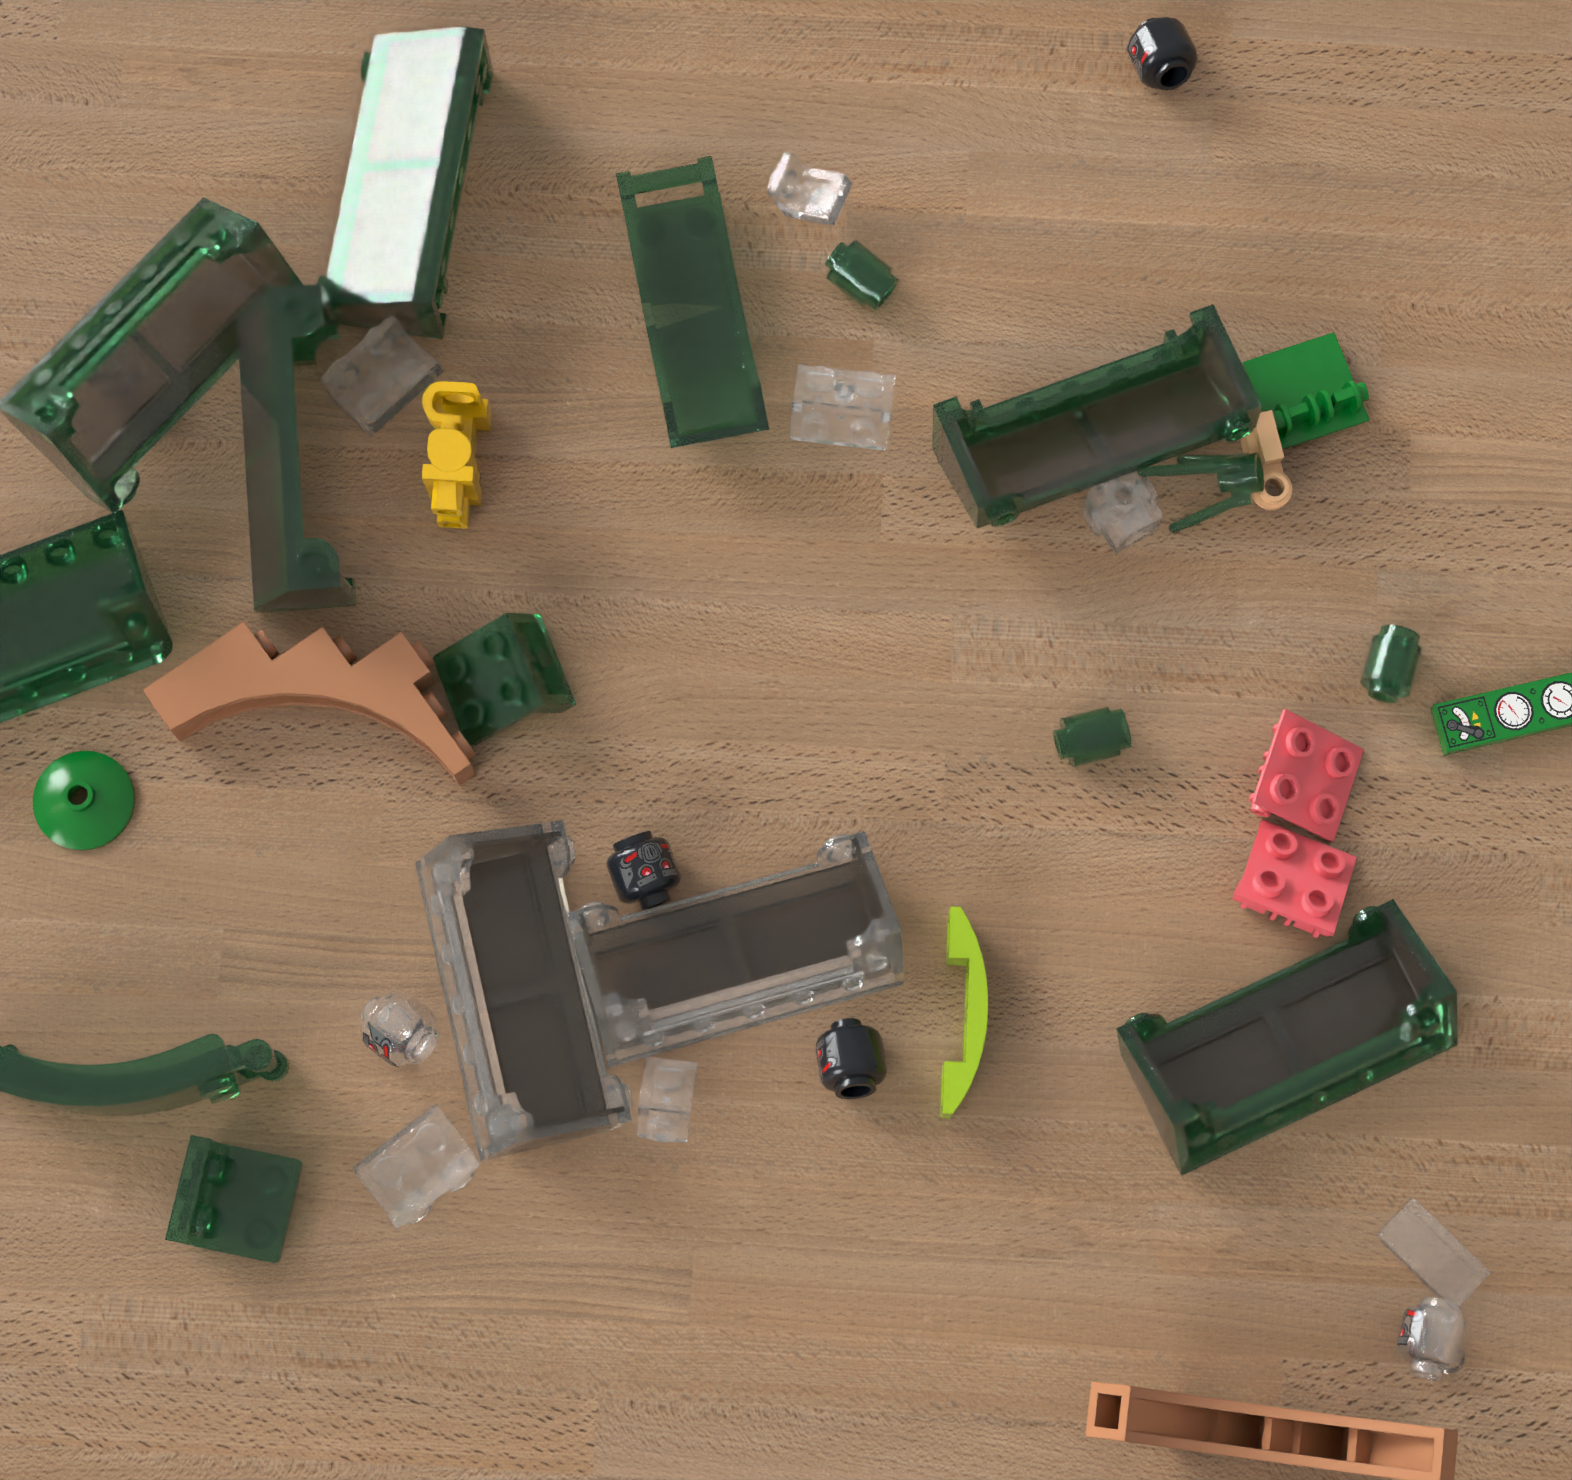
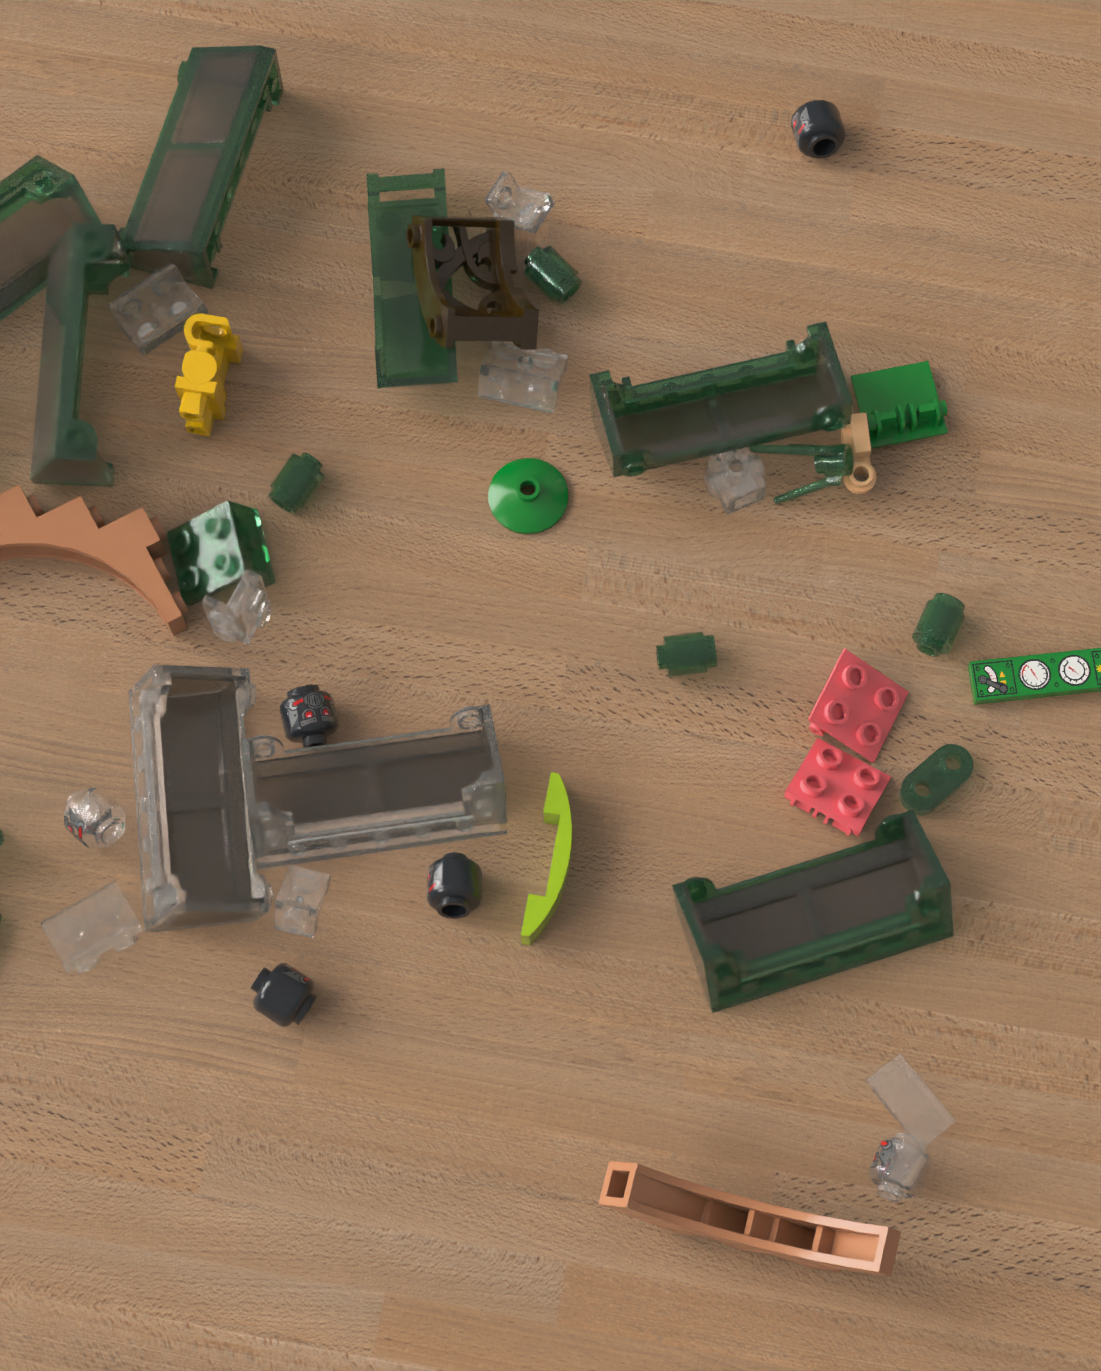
camera: 10 degrees right, 5 degrees down
(550, 747) = (244, 612): none -> clear bracket
(584, 576) = (296, 482): none -> clear green brick
(663, 1220) = (283, 994): none -> black head
(748, 352) = (451, 320): none -> dark brown fence
(864, 580) = (528, 512): none -> green dish
(1413, 853) = (937, 778): none -> clear green plate

